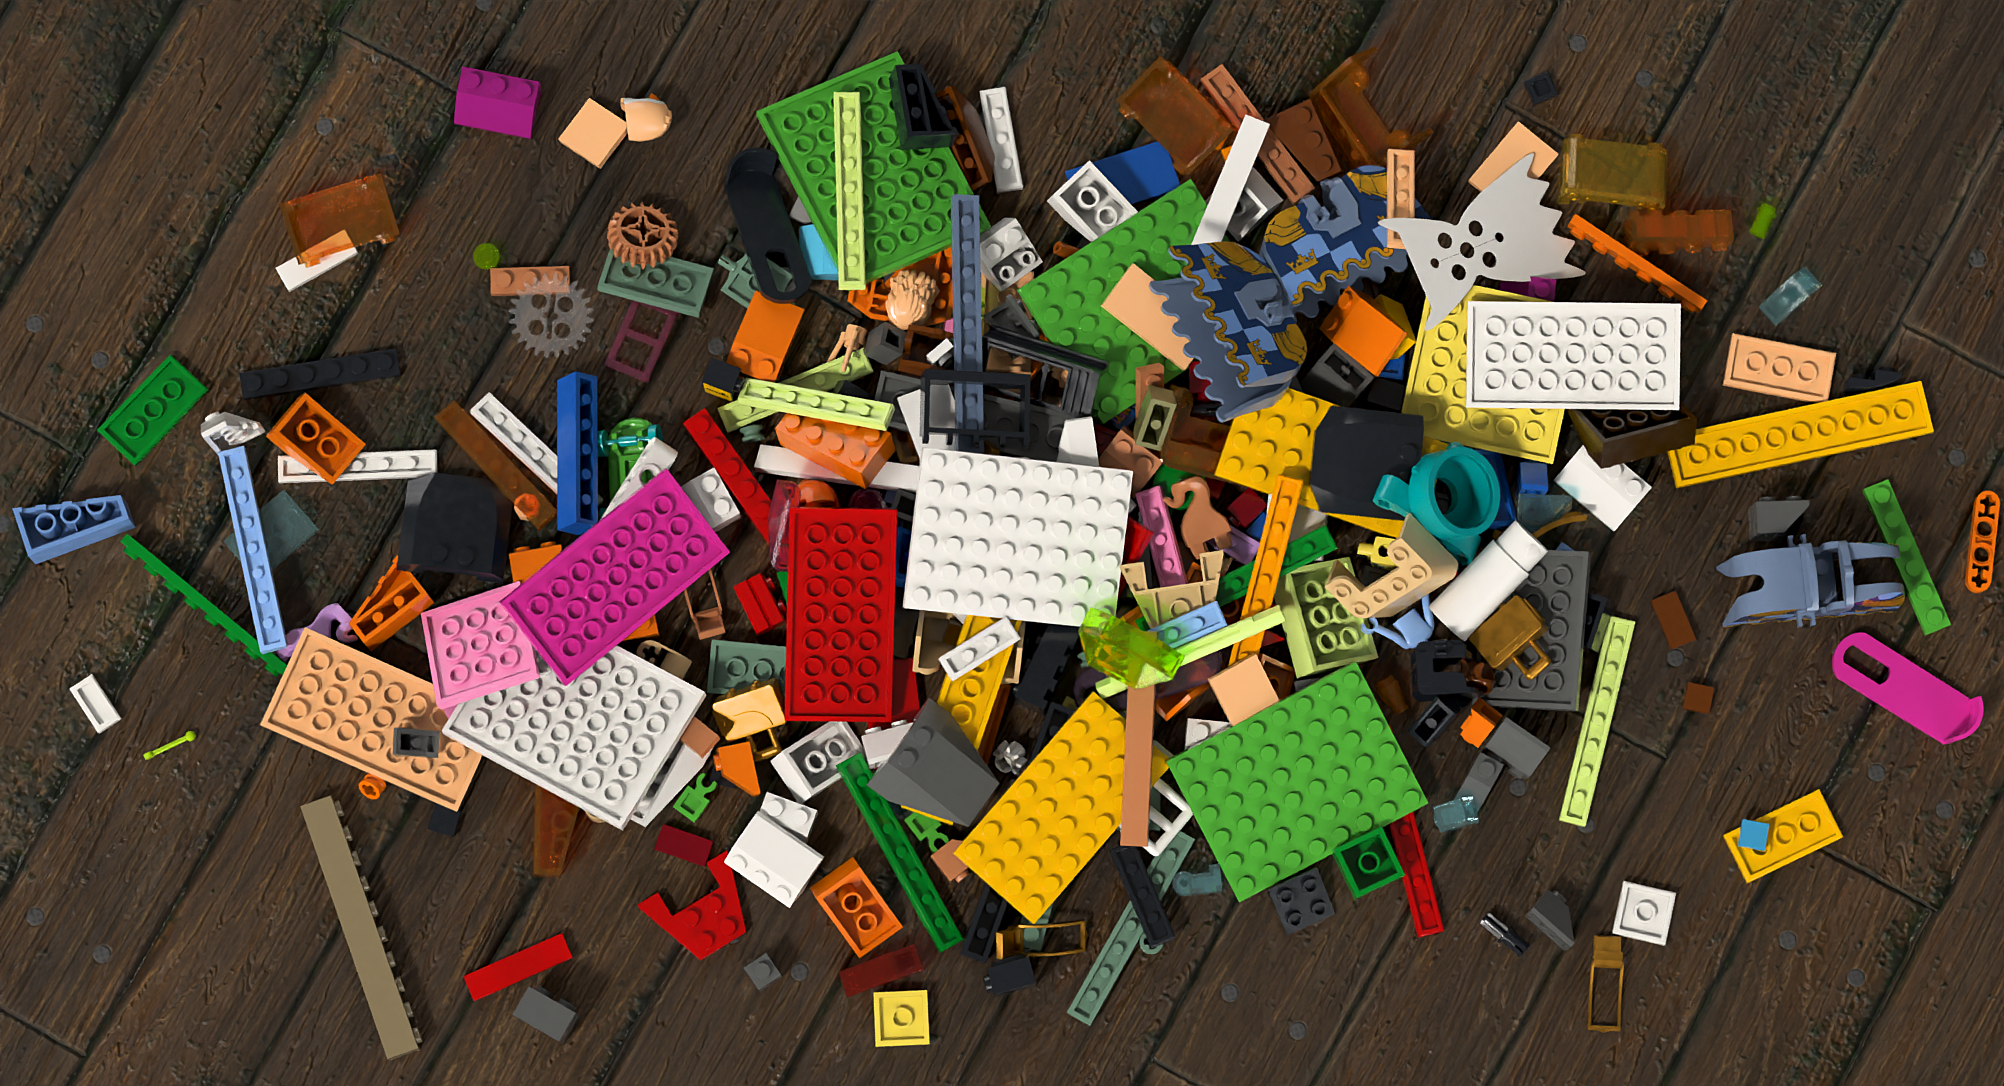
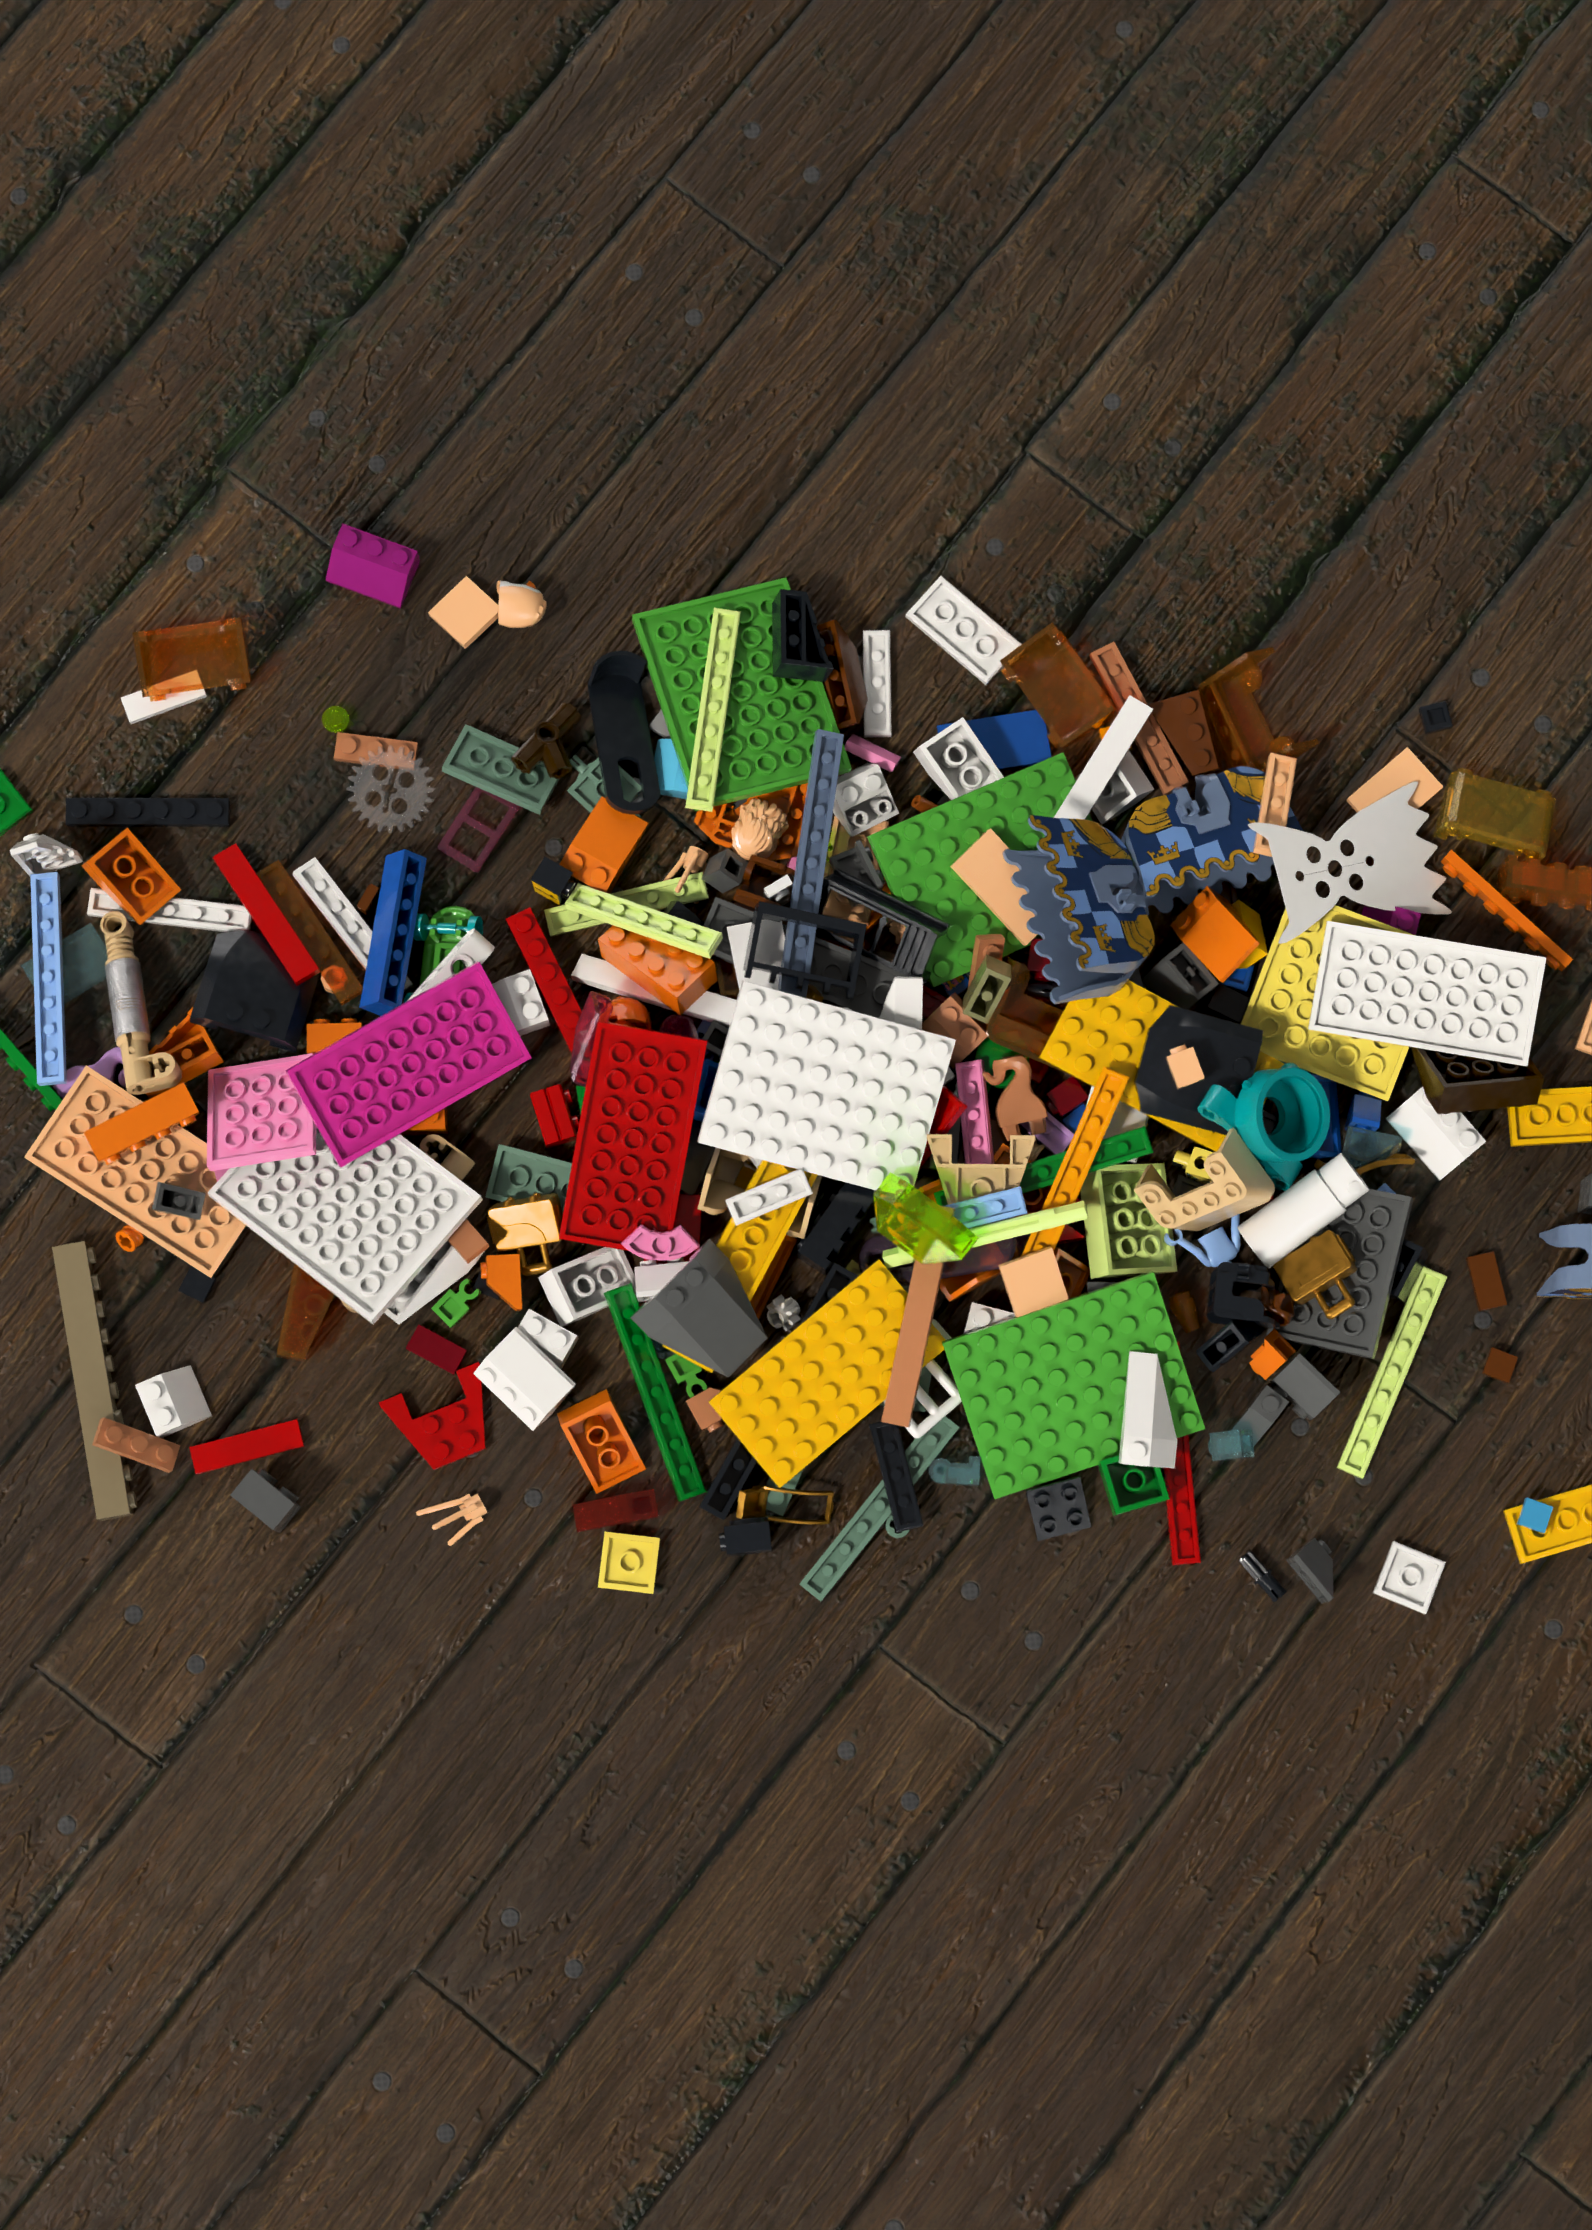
camera: 10 degrees right, 0 degrees up
(338, 569) = (130, 1012): none -> tan piece
(367, 674) = (141, 1123): none -> orange brick
(413, 982) = (136, 1445): none -> nougat plate
(441, 934) = (173, 1401): none -> white slope
(451, 455) = (266, 914): none -> red tile
(547, 425) = (368, 899): none -> reddish brown tile
(626, 235) = (480, 717): nougat gear -> none
(697, 255) = (552, 750): none -> dark brown piece
(708, 621) = (499, 1125): nougat piece -> none
(743, 991) = (471, 1508): none -> light nougat plant
(752, 433) = (575, 941): sand green bush -> none
(762, 972) = (495, 1492): dark grey brick -> none
(882, 711) = (660, 1245): none -> bright pink tile
(1007, 207) = (872, 753): none -> bright pink tile
(1075, 75) = (962, 630): none -> white tile
(1354, 462) = (1184, 1066): none -> light nougat brick
(1372, 804) = (1147, 1422): none -> white wedge
(1606, 955) = (1366, 1615): pearl gold piece -> none

